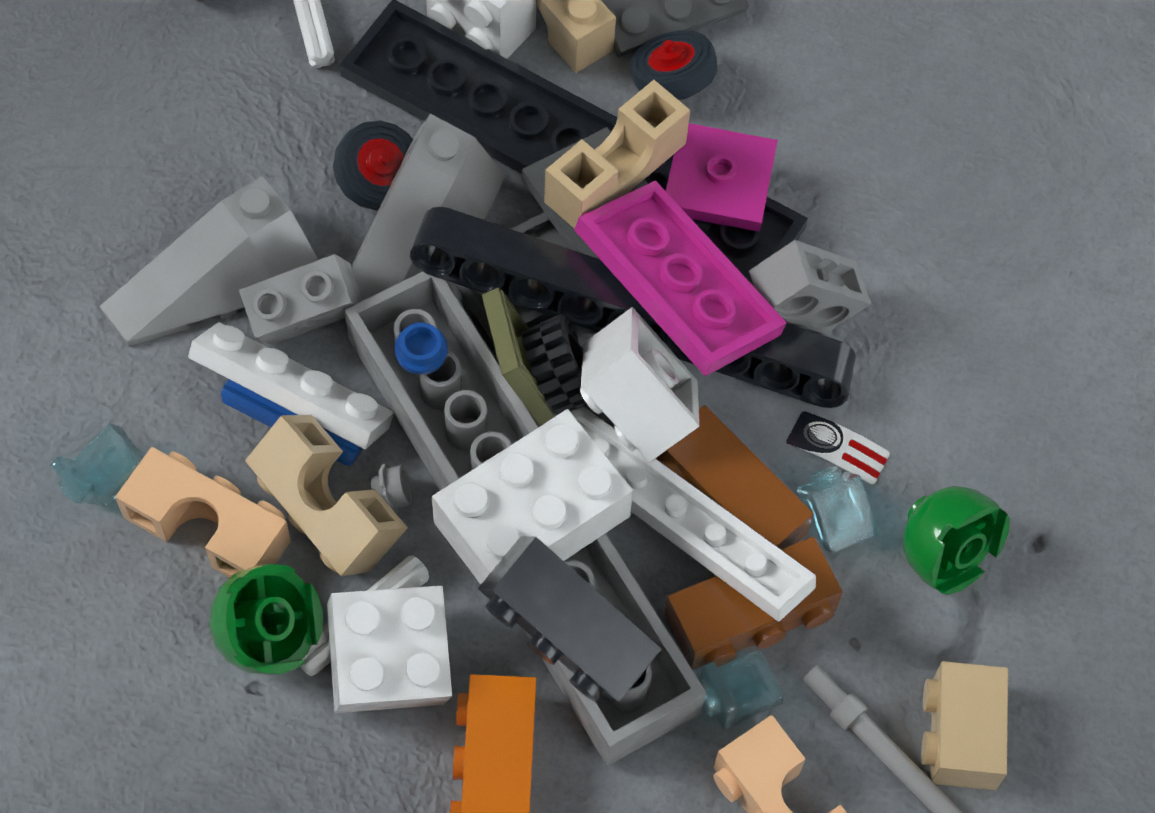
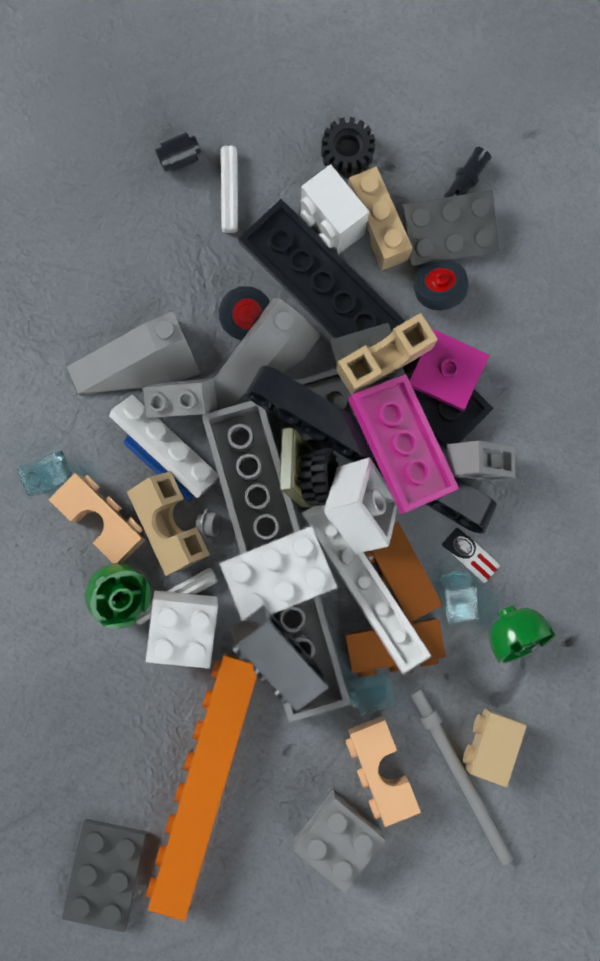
camera: 15 degrees right, 20 degrees up
(421, 348) = (239, 454): blue plate -> none

